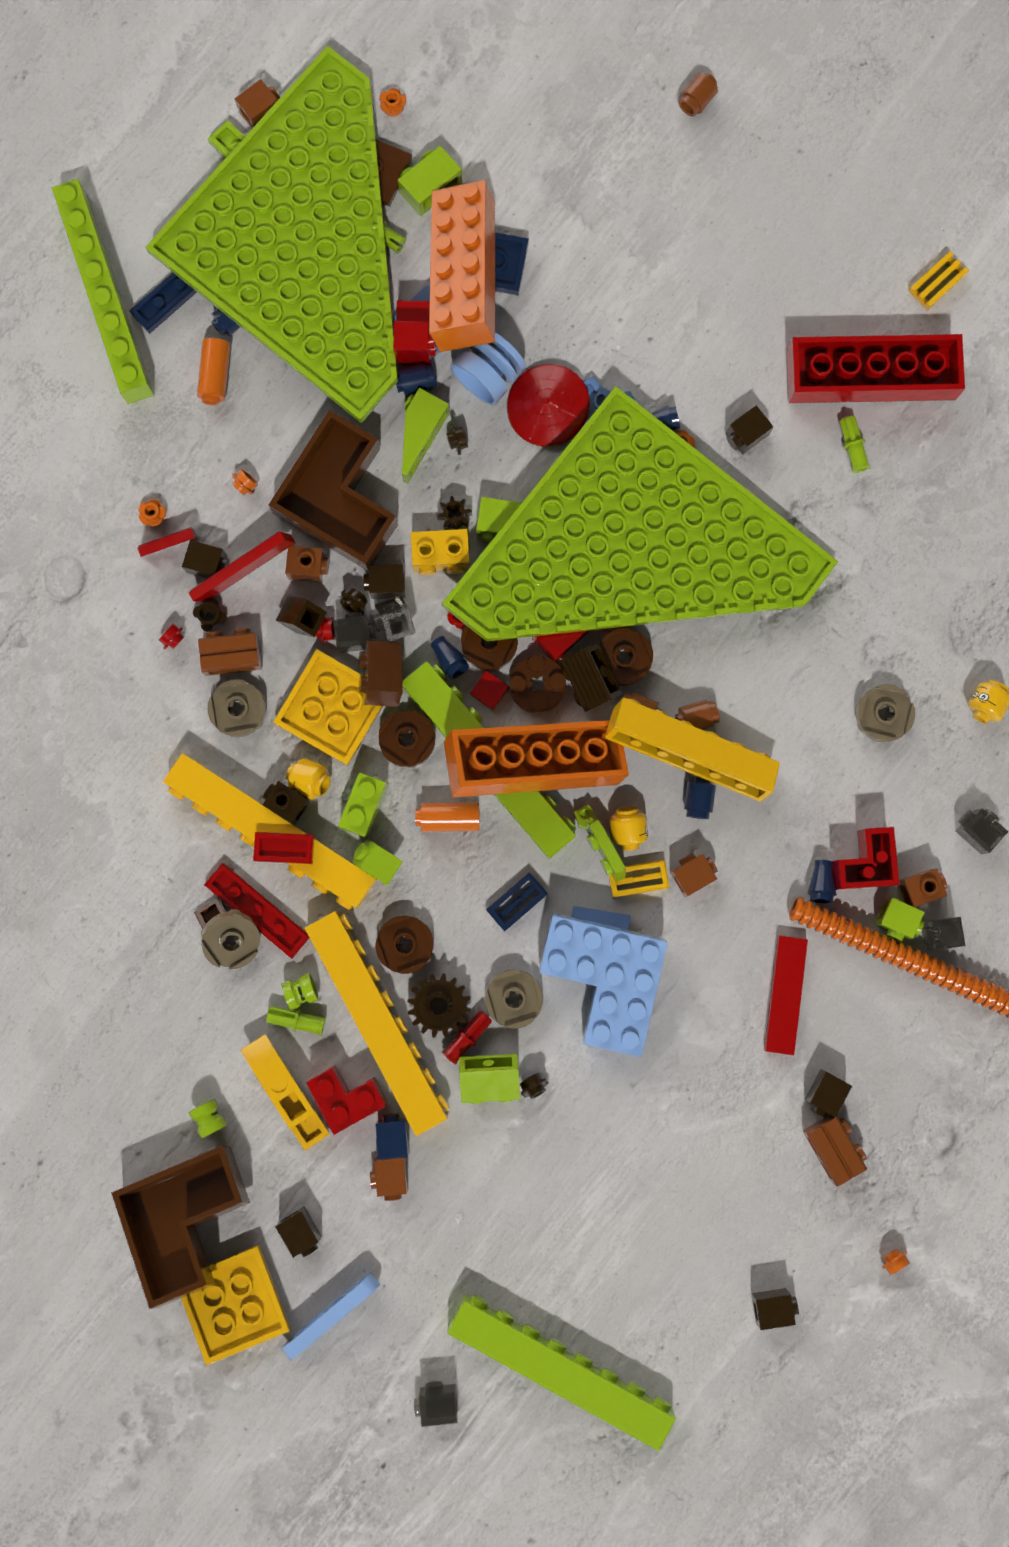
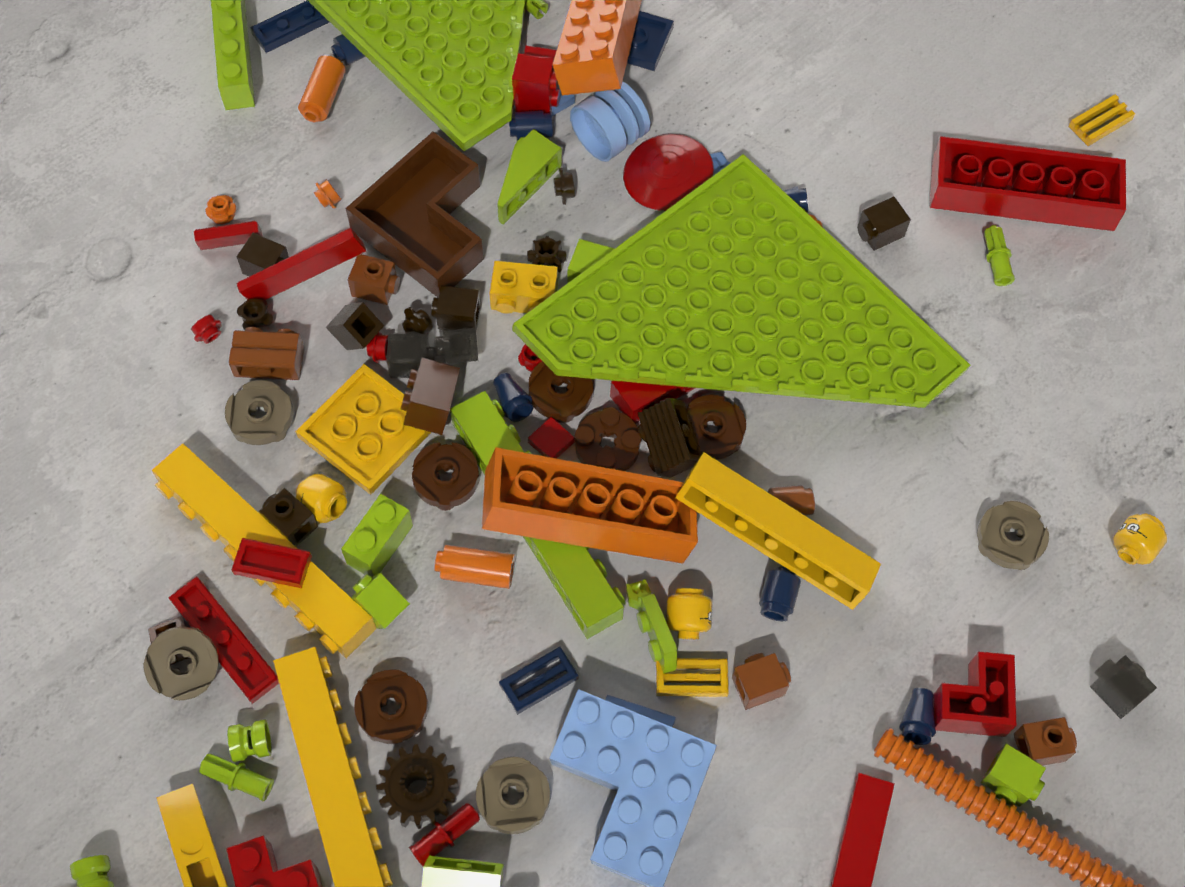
camera: 10 degrees right, 20 degrees down
(943, 933) = (1068, 802): clear smoke brick -> none

